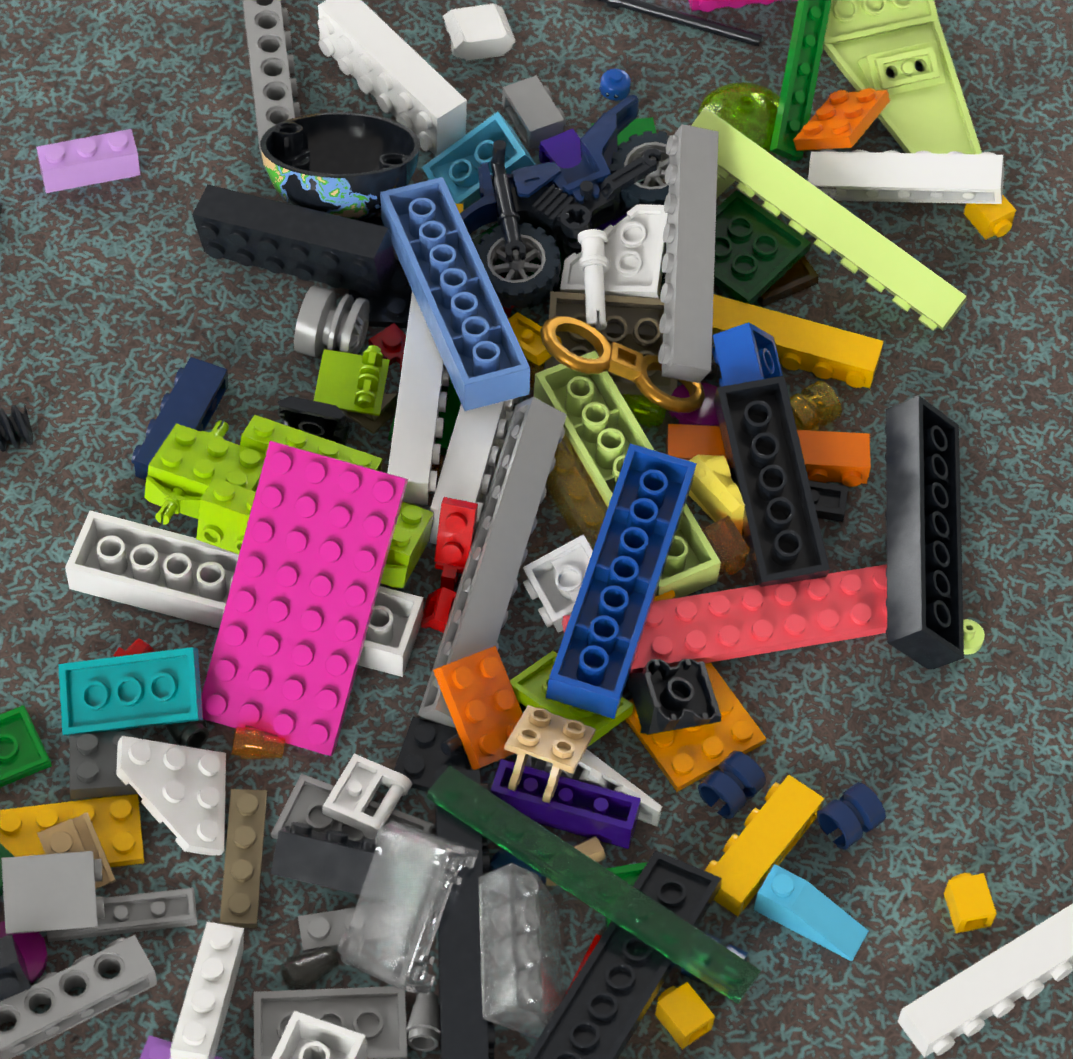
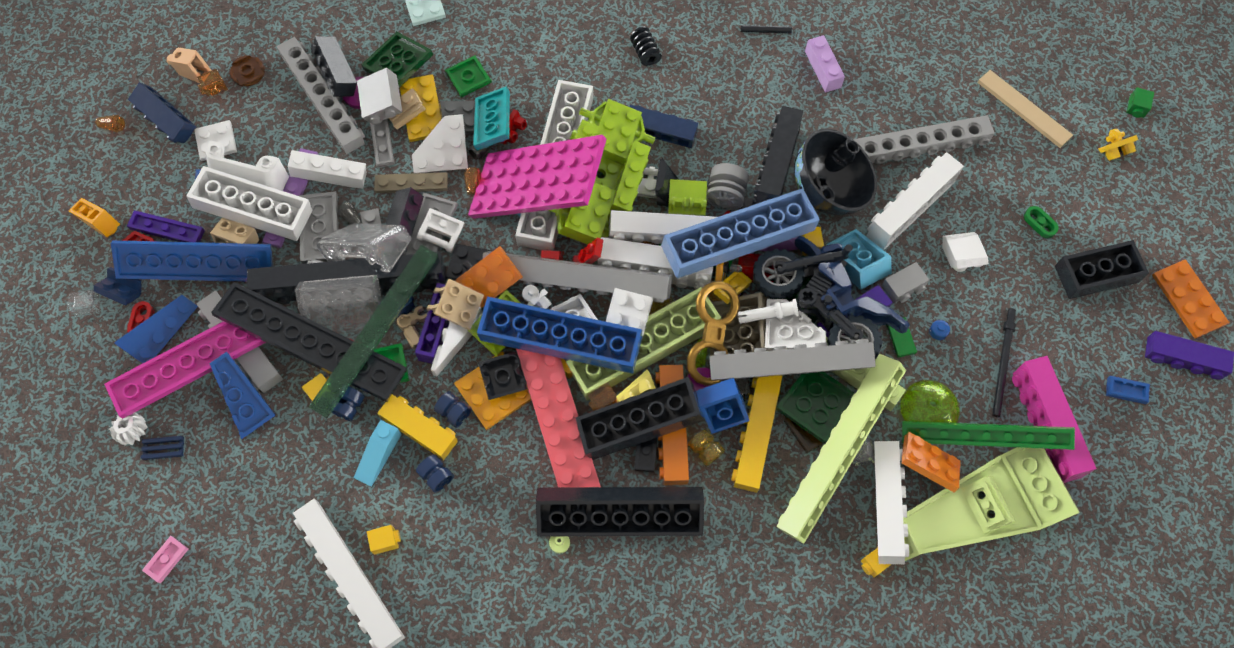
camera: 90 degrees right, 10 degrees up
(530, 634) = (532, 295): none -> white hips
(580, 476) = (629, 309): none -> white plate

